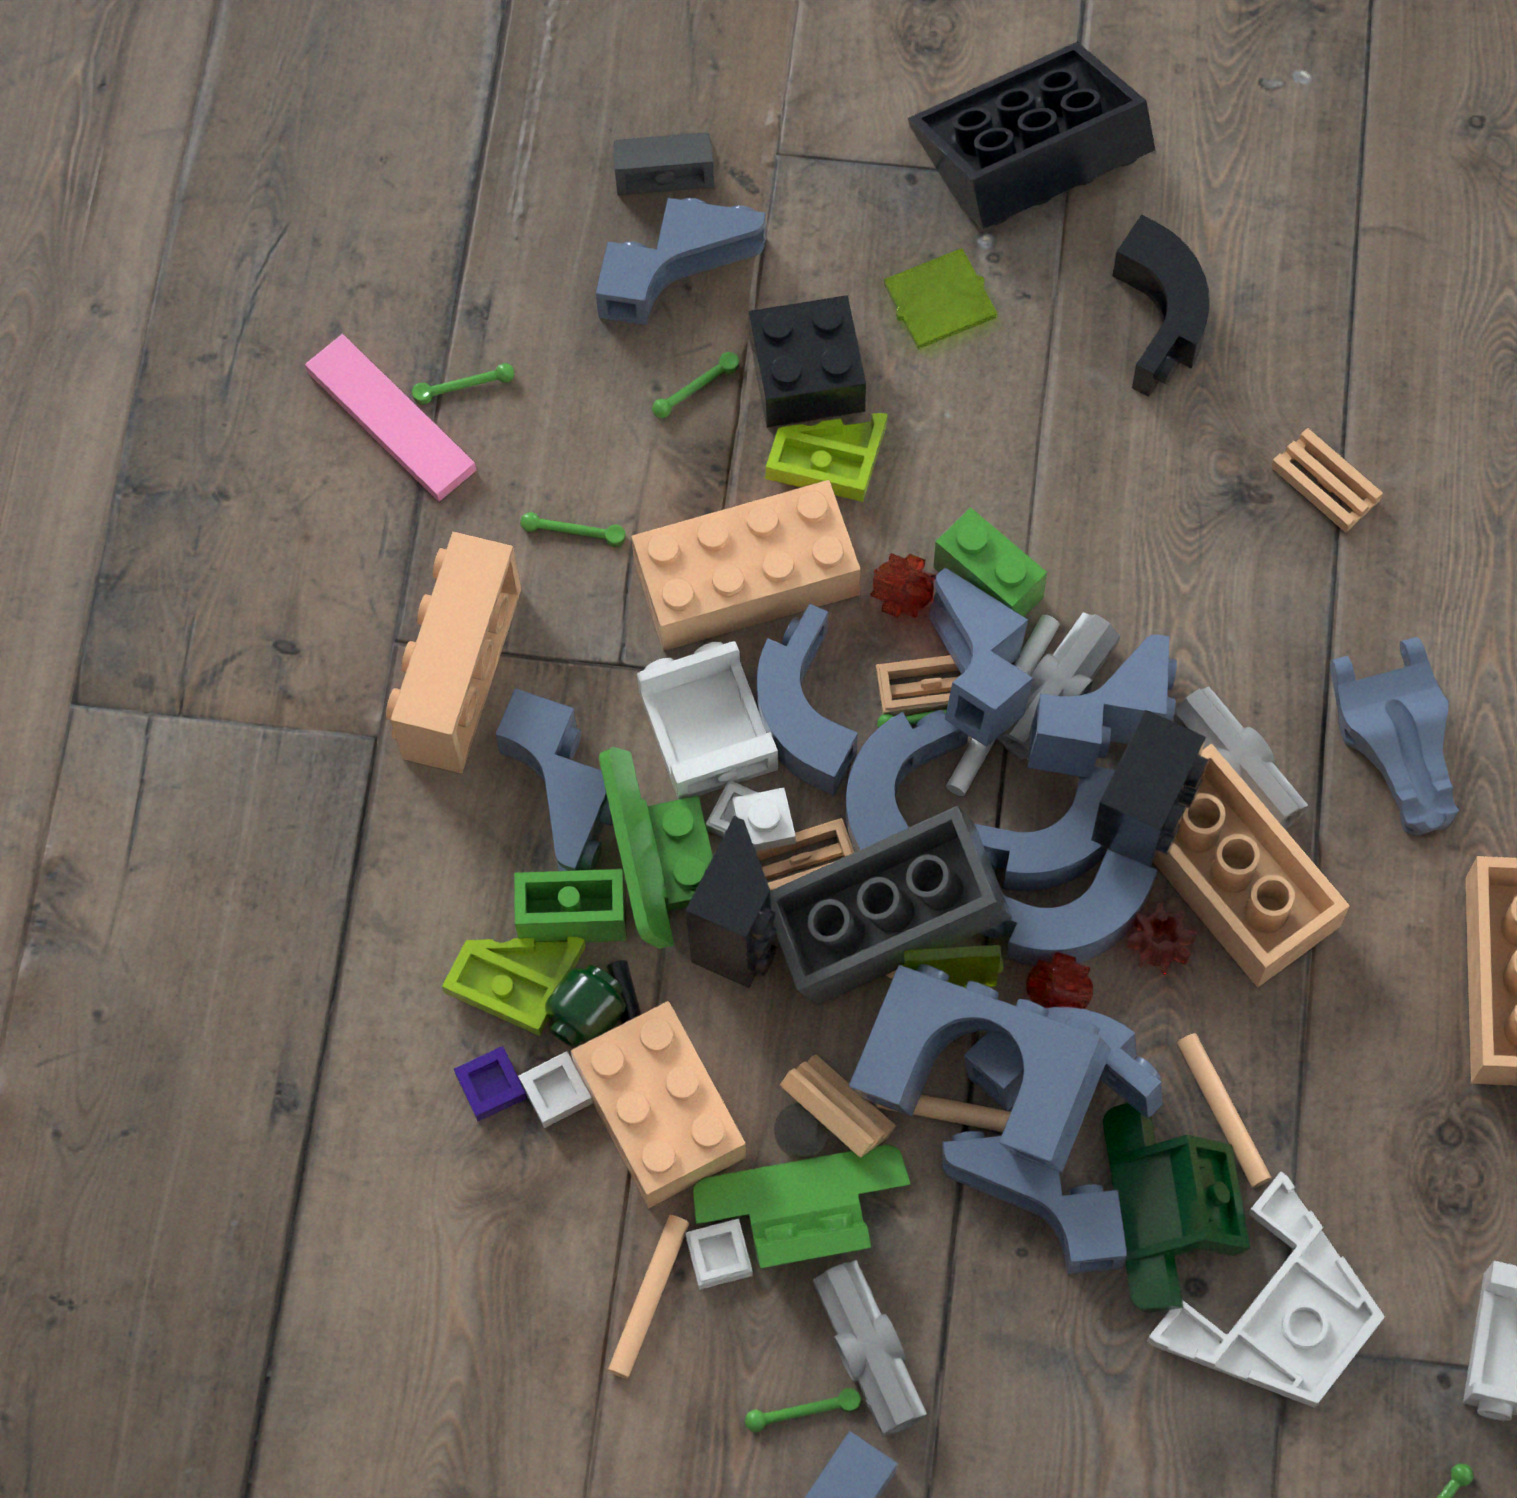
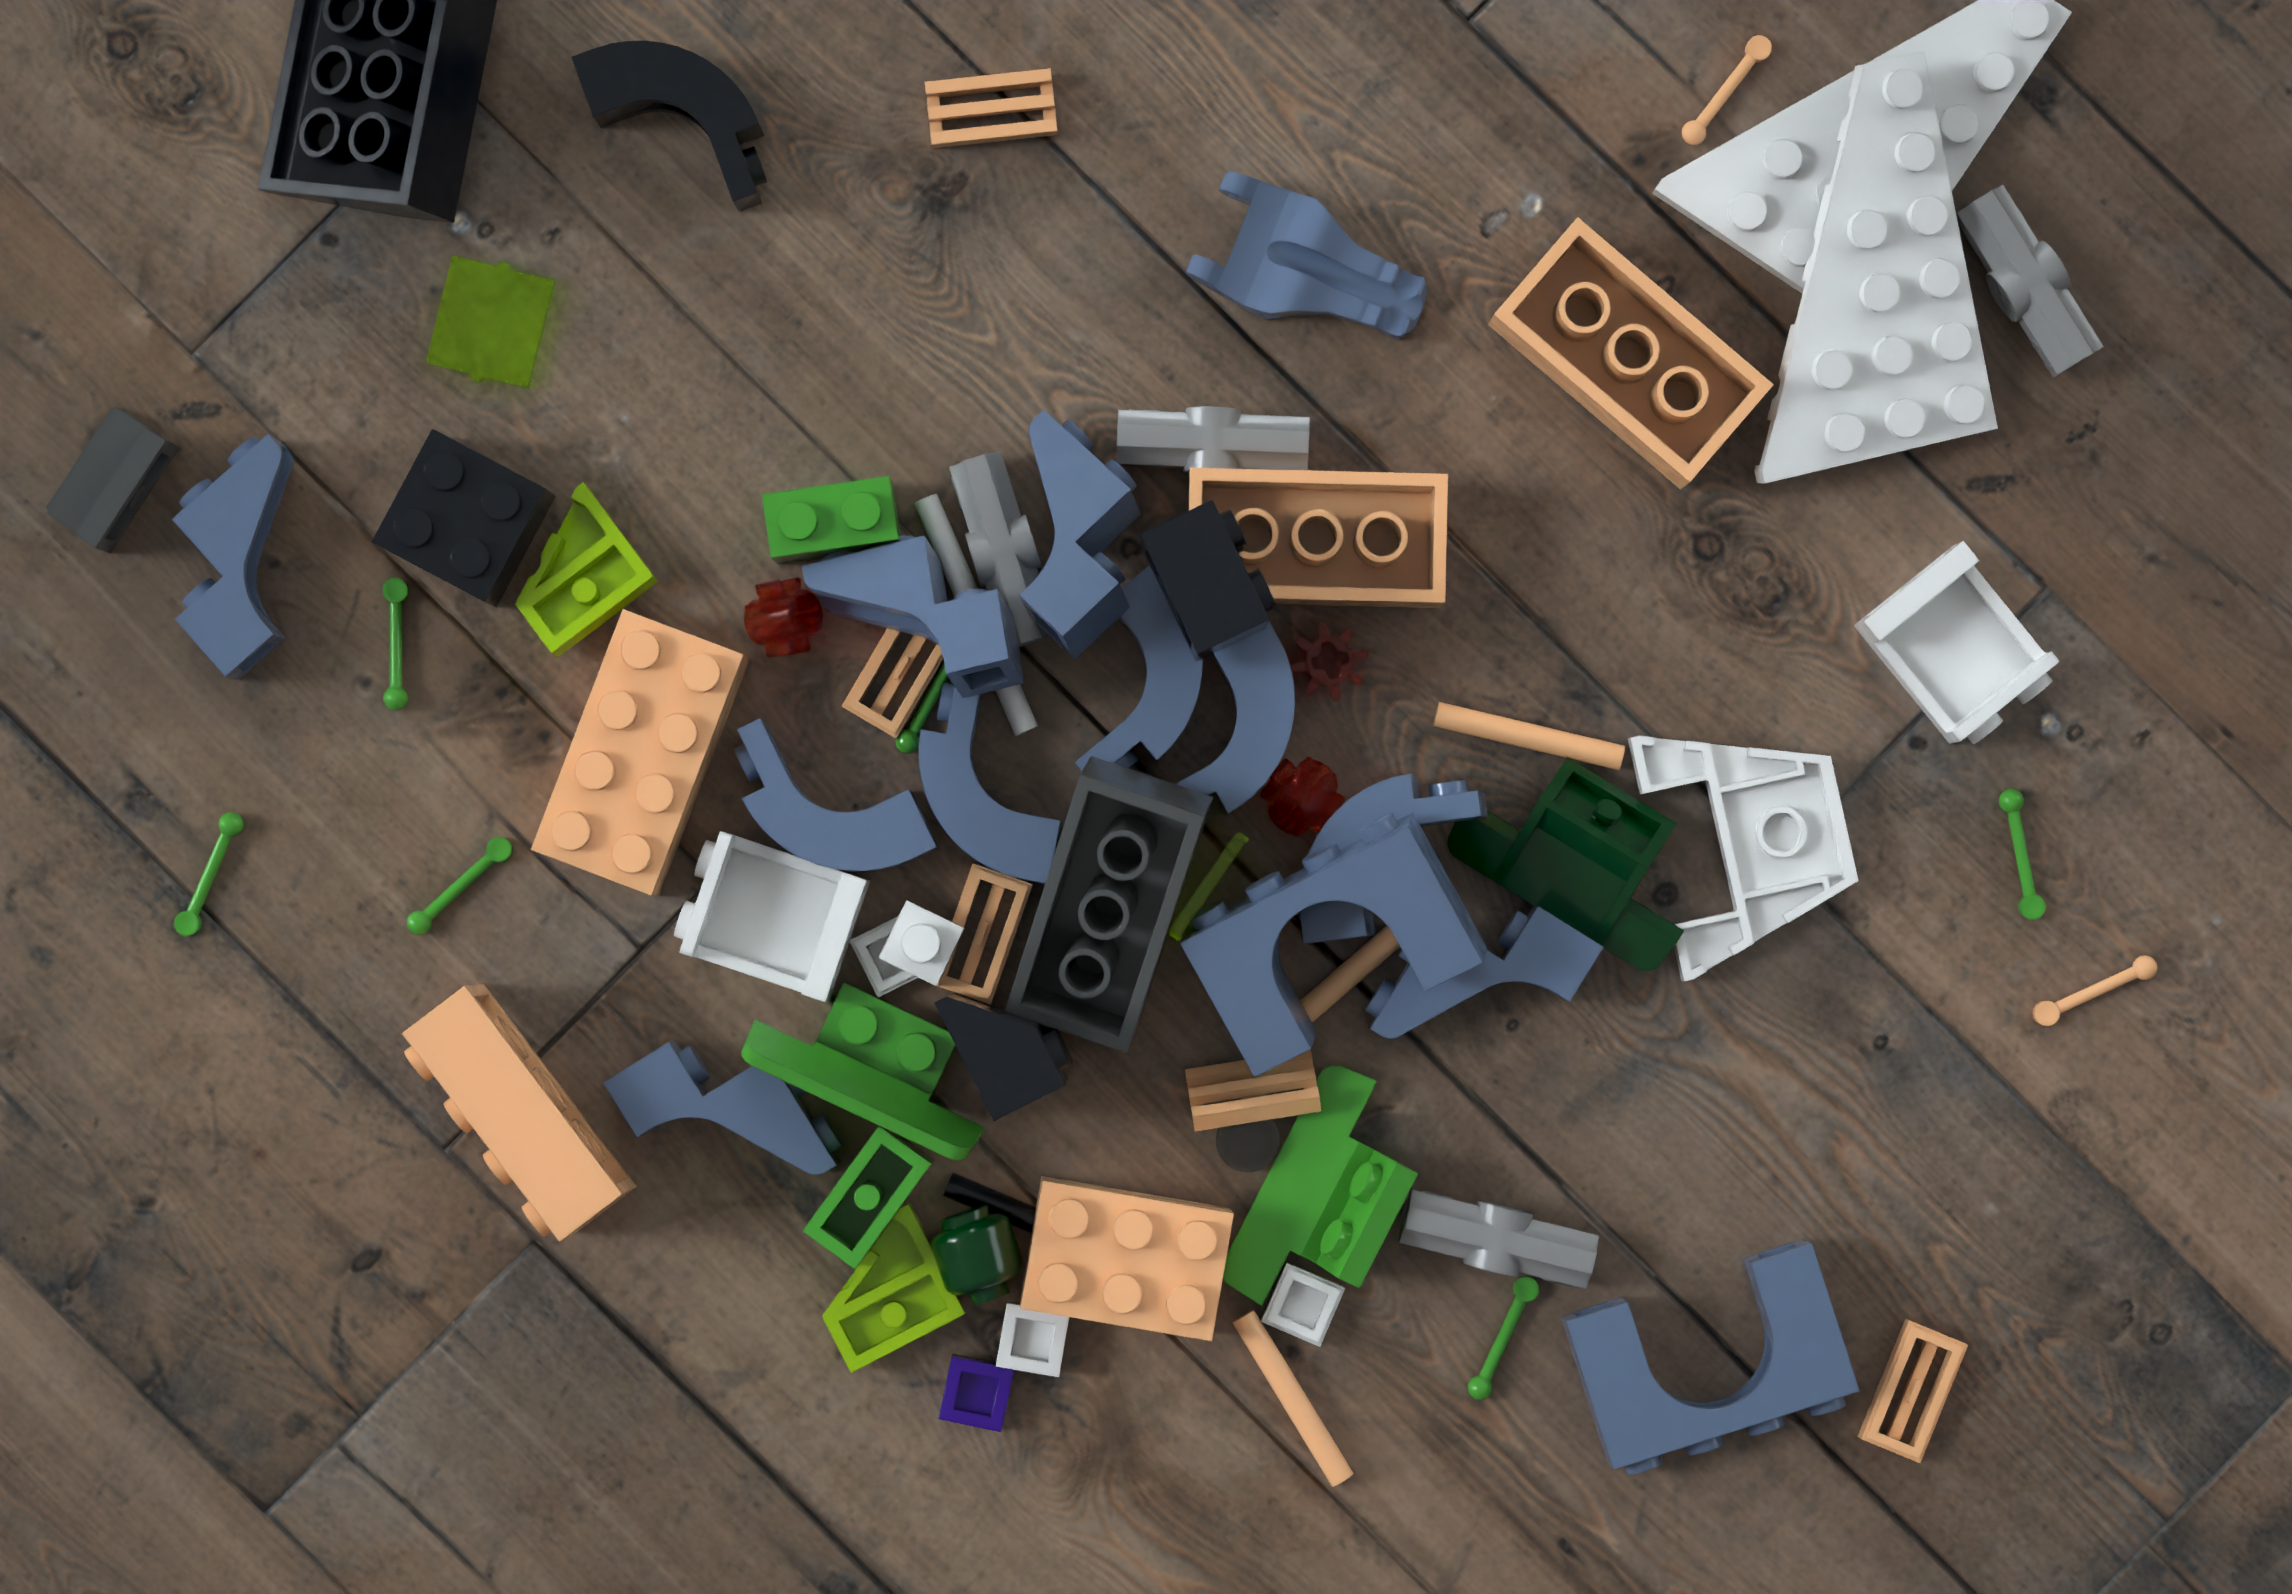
camera: 55 degrees left, 20 degrees up
(390, 417) = (191, 976): bright pink tile -> none

